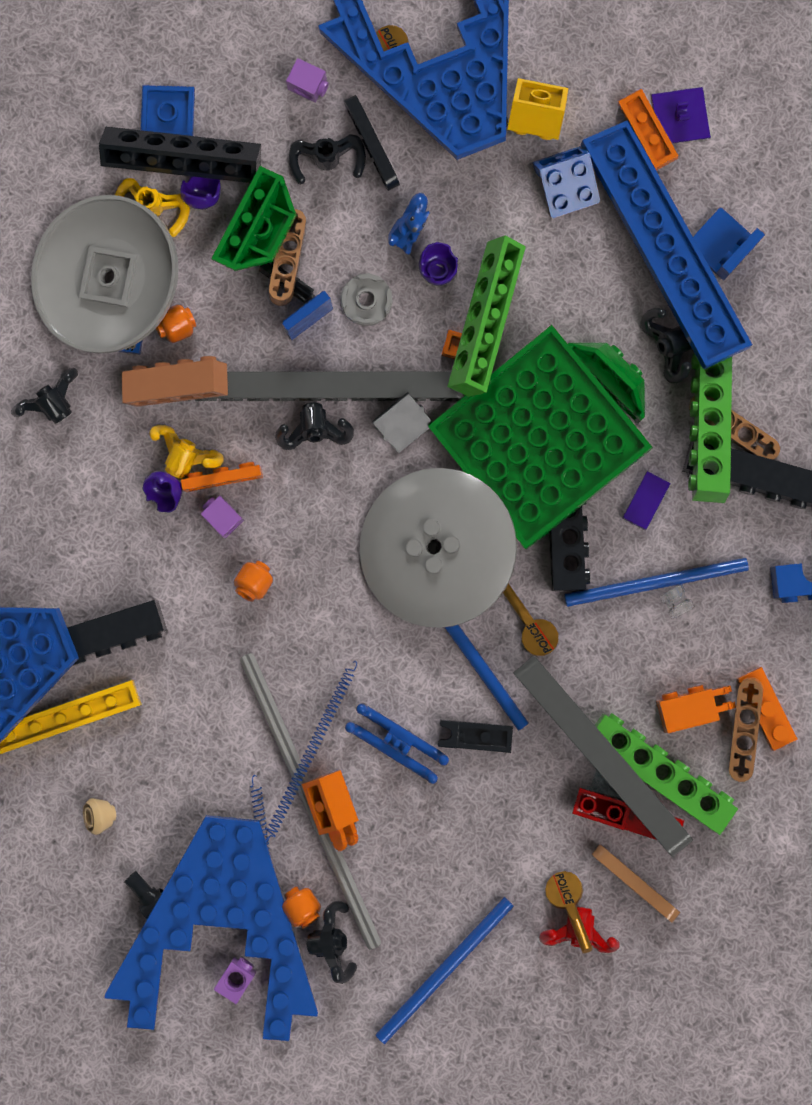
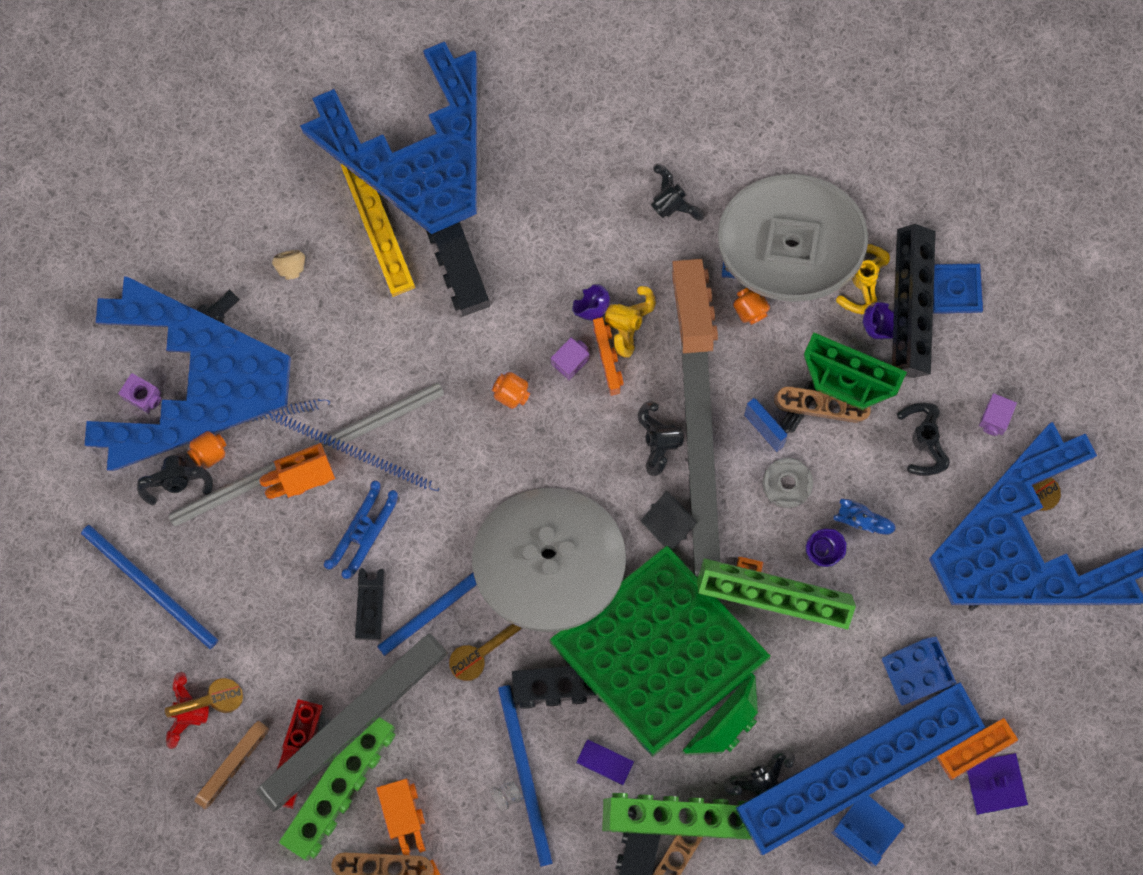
camera: 85 degrees right, 10 degrees down
(371, 142) = (941, 479): black beam -> none
(537, 109) = (989, 638): yellow slope -> none

